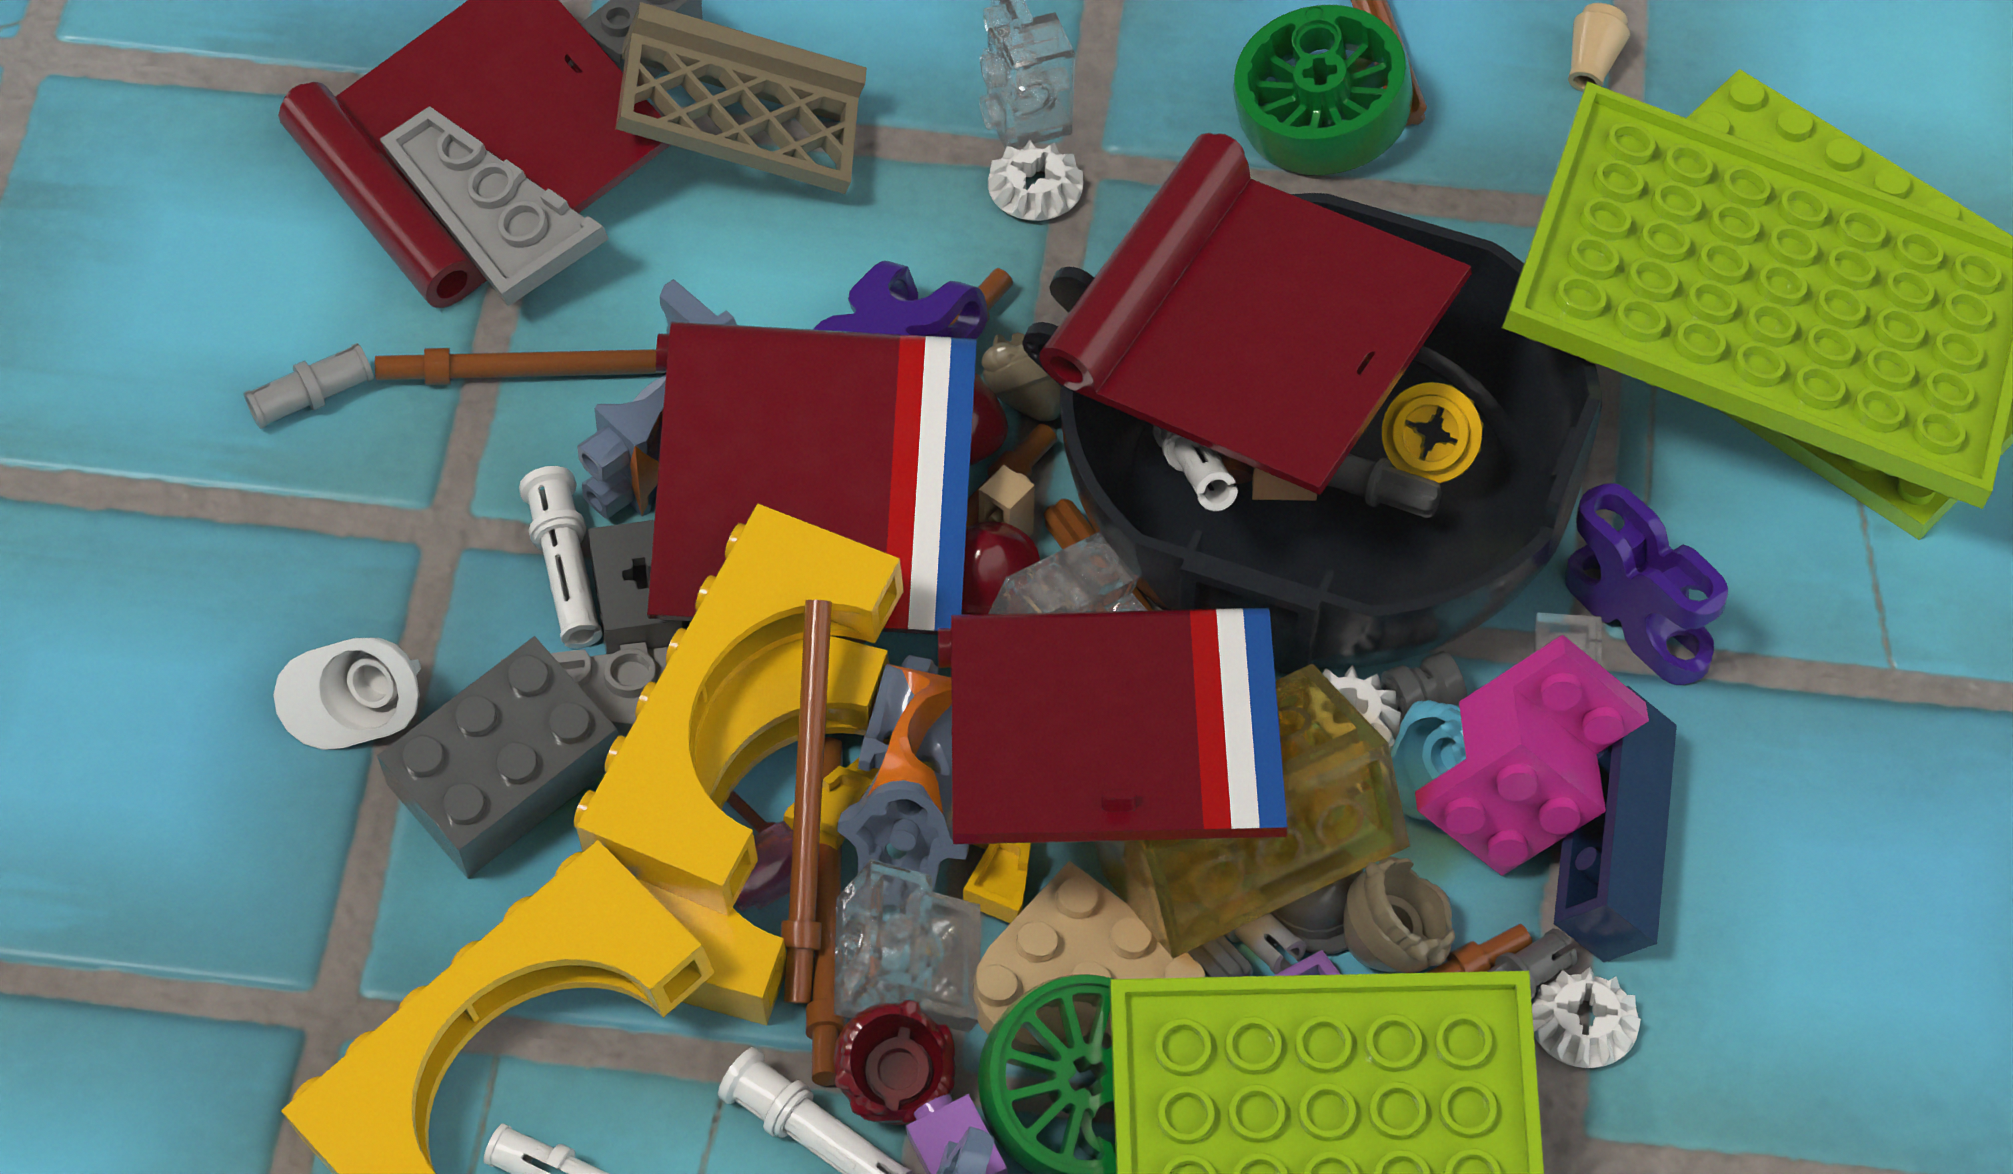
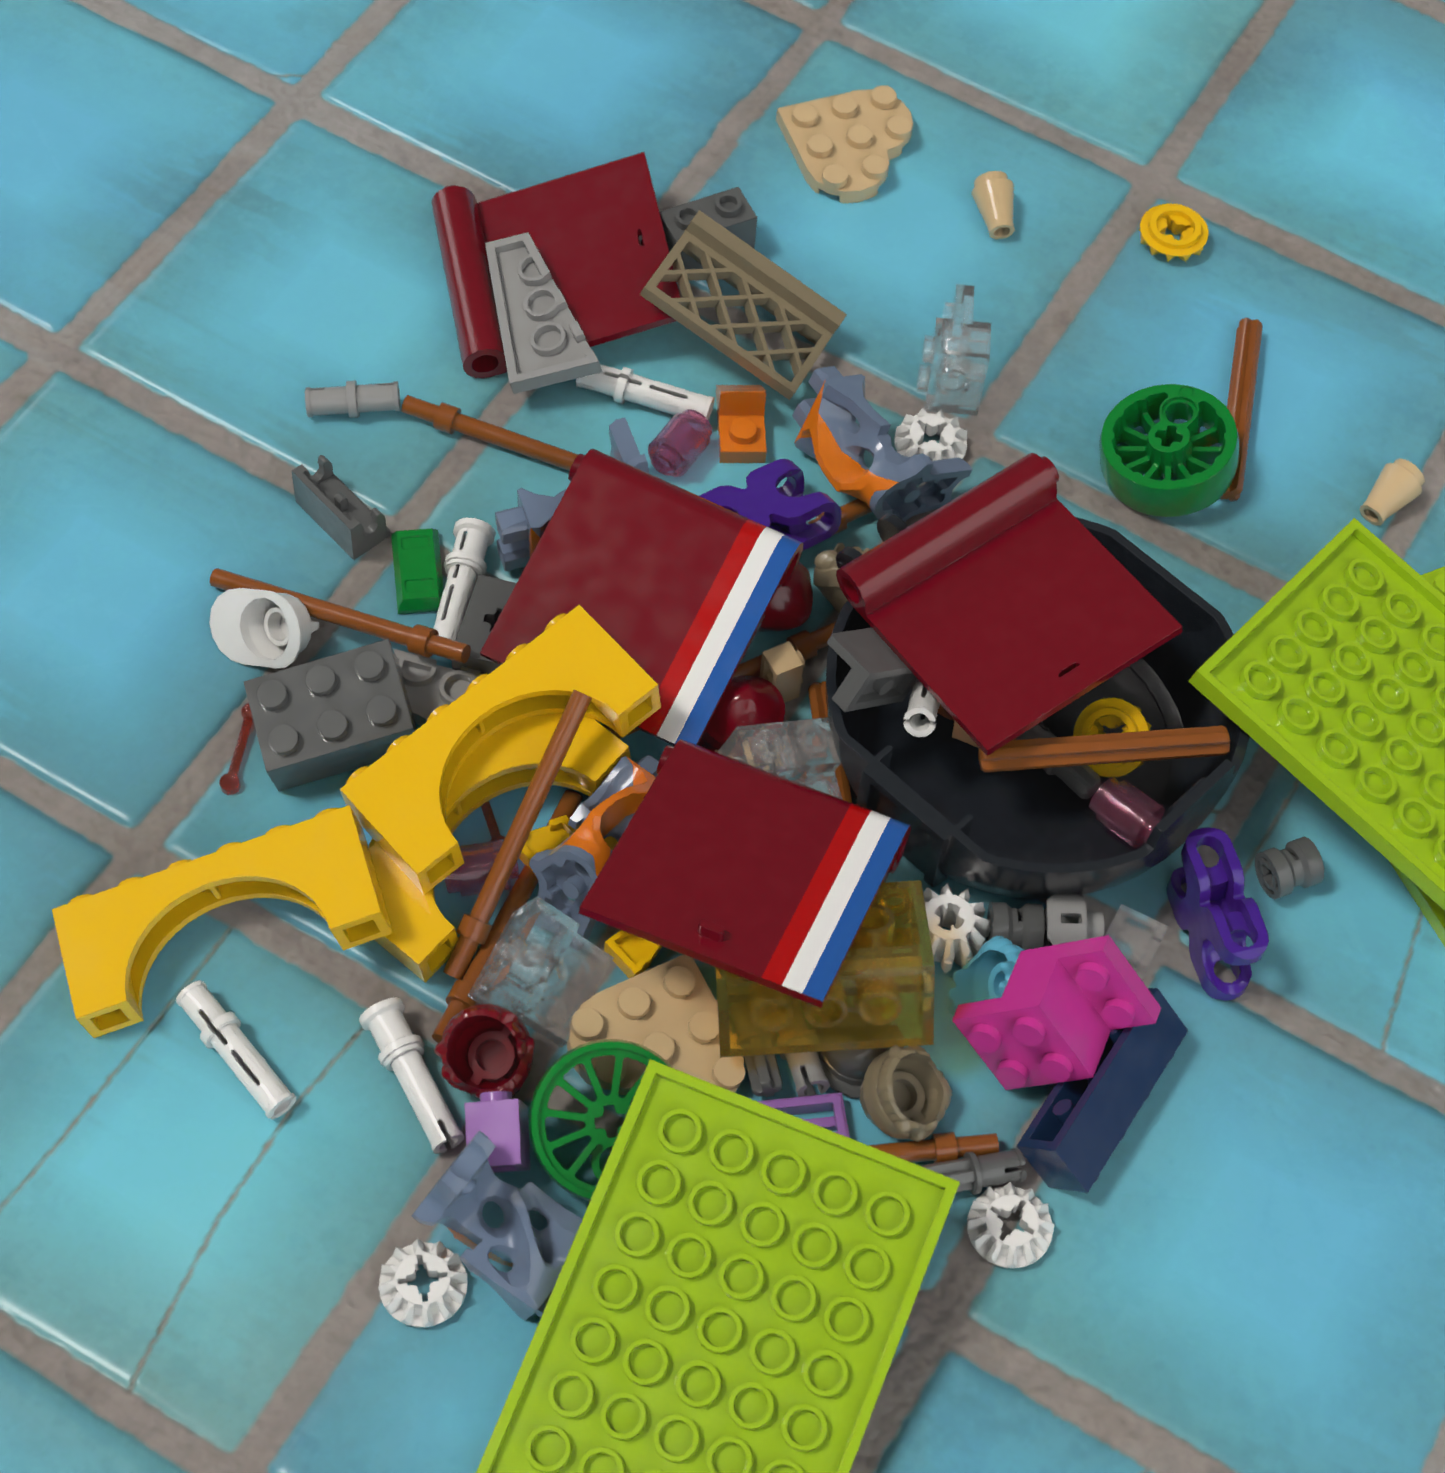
camera: 20 degrees right, 5 degrees up
(363, 523) = (338, 509): none -> dark grey hinge
(403, 889) = (230, 782): none -> clear red hinge
(497, 558) = (417, 570): none -> green tile
(560, 629) = (419, 639): none -> dark orange bar
(672, 247) = (657, 395): none -> white pin
(743, 285) = (680, 443): none -> clear pink brick
(799, 242) = (741, 423): none -> orange slope
(930, 218) = (840, 444): none -> sand blue hips
(1145, 452) = (875, 673): none -> dark grey panel
(1441, 442) = (1107, 749): none -> dark orange axle
(1485, 652) = (1070, 921): none -> light grey piece
(1488, 511) = (1126, 811): none -> clear pink brick
(1701, 500) = (1290, 867): none -> dark grey wheel

